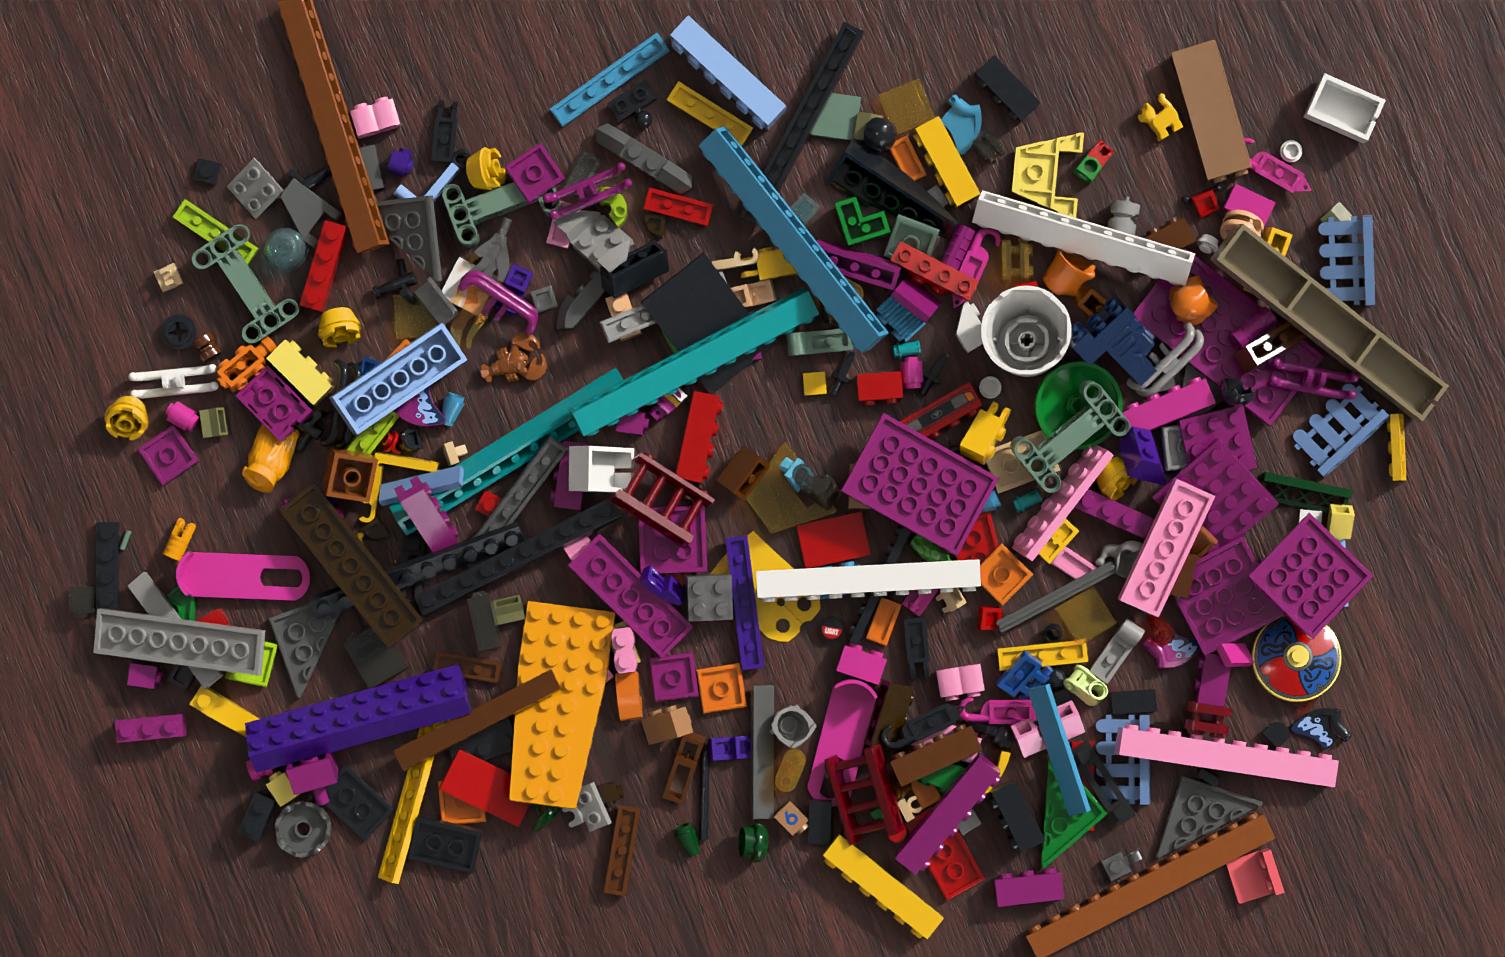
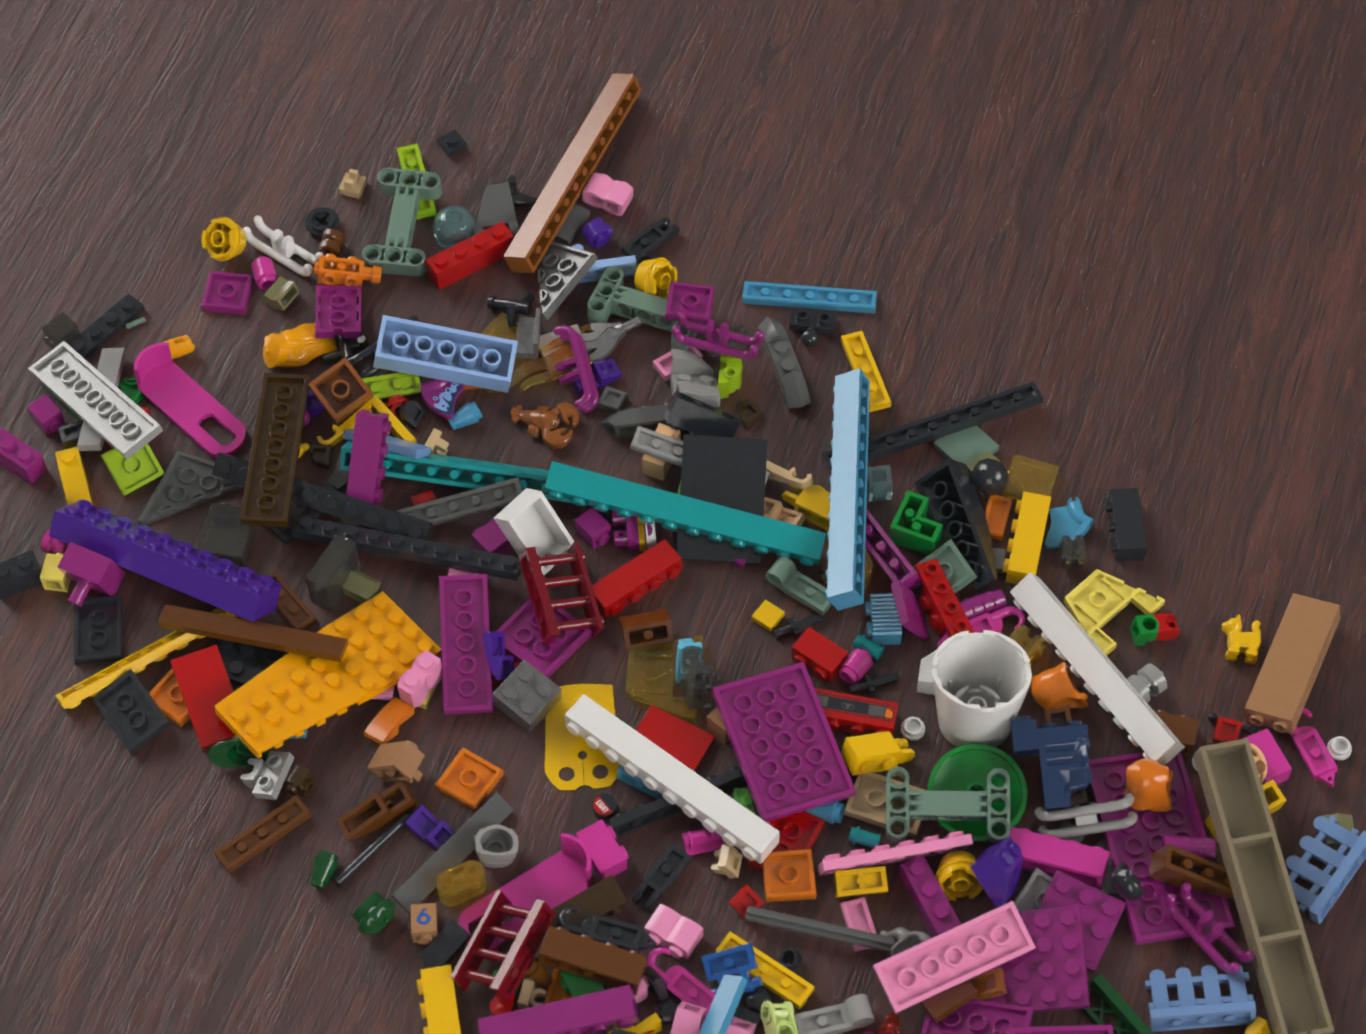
camera: 40 degrees right, 30 degrees down
(255, 188) = (474, 174): light grey hinge -> none
(287, 829) = (35, 598): dark grey plate -> none
(301, 371) = (378, 302): light yellow brick -> none
(338, 327) = (438, 298): yellow cone -> none
(674, 677) = (441, 739): magenta tile -> none
(678, 207) = (779, 413): red plate -> none
(728, 73) = (905, 349): light blue brick -> none
(744, 603) = (549, 729): dark purple plate -> none
(883, 621) = (653, 836): orange tile -> none
(1085, 616) = (831, 968): clear yellow tile -> none

